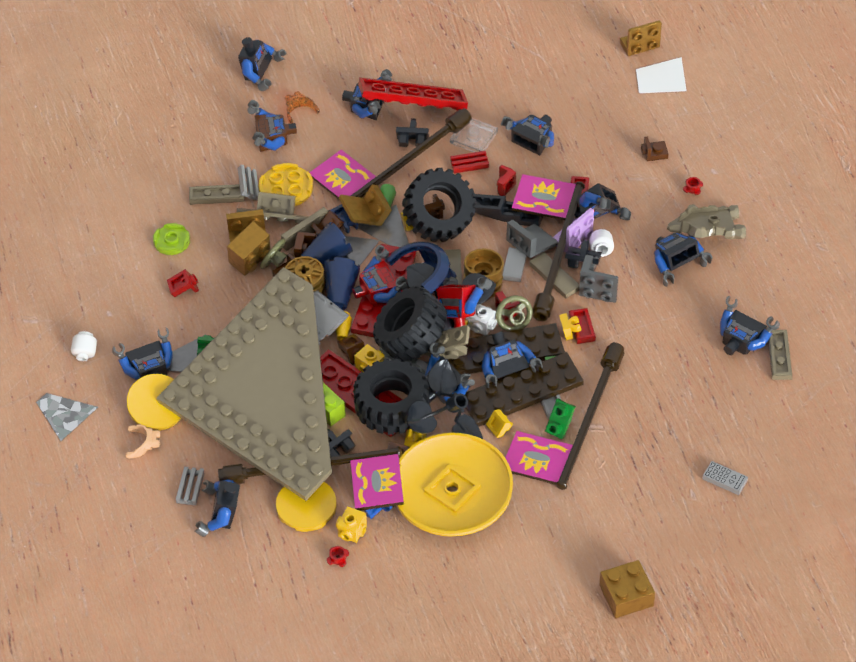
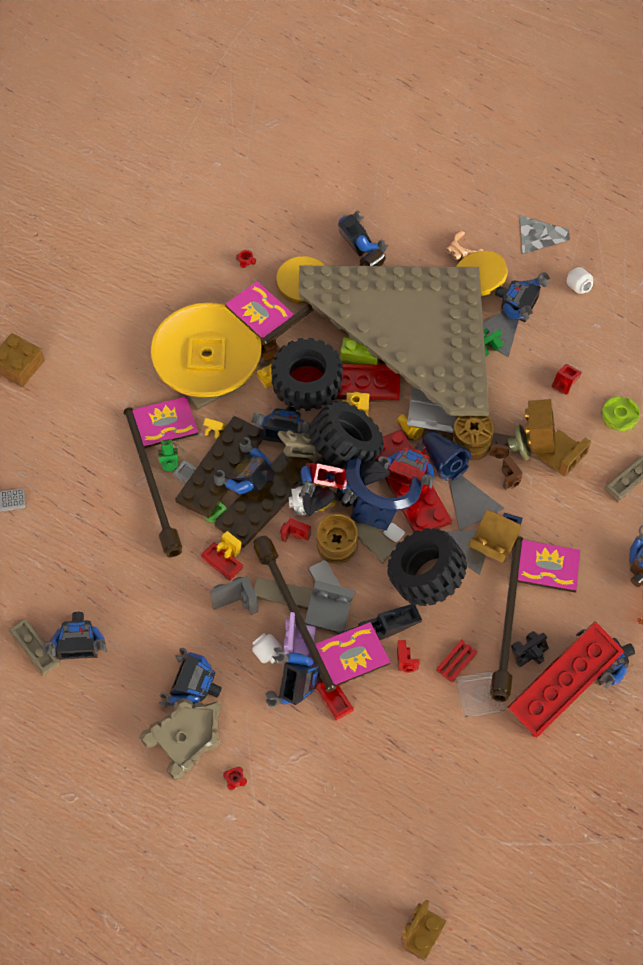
camera: 140 degrees right, 10 degrees up
(200, 473) = (383, 233): light grey tile -> none
(251, 183) = (603, 492): light grey tile -> none
(277, 206) = (565, 489): dark tan bracket -> none
(287, 180) = (586, 525): yellow tile -> none
(304, 226) = (525, 485): dark tan tile -> none
(328, 245) = (486, 481): dark blue cone -> none
(329, 217) = (509, 501): reddish brown bracket -> none
(343, 441) = (323, 328): black hips -> none
(351, 345) = (384, 412): reddish brown bracket -> none
(351, 524) = (251, 274): yellow brick -> none
(388, 192) = (490, 567): bright green cone -> none
(442, 380) = (235, 403): black plant -> none
(518, 320) = (279, 519): olive piece -> none
(531, 132) = (425, 727): torso -> none
(575, 255) = (276, 616): black hips -> none
(654, 150) = (302, 796): reddish brown bracket -> none
(662, 77) = (367, 904): white sticker -> none

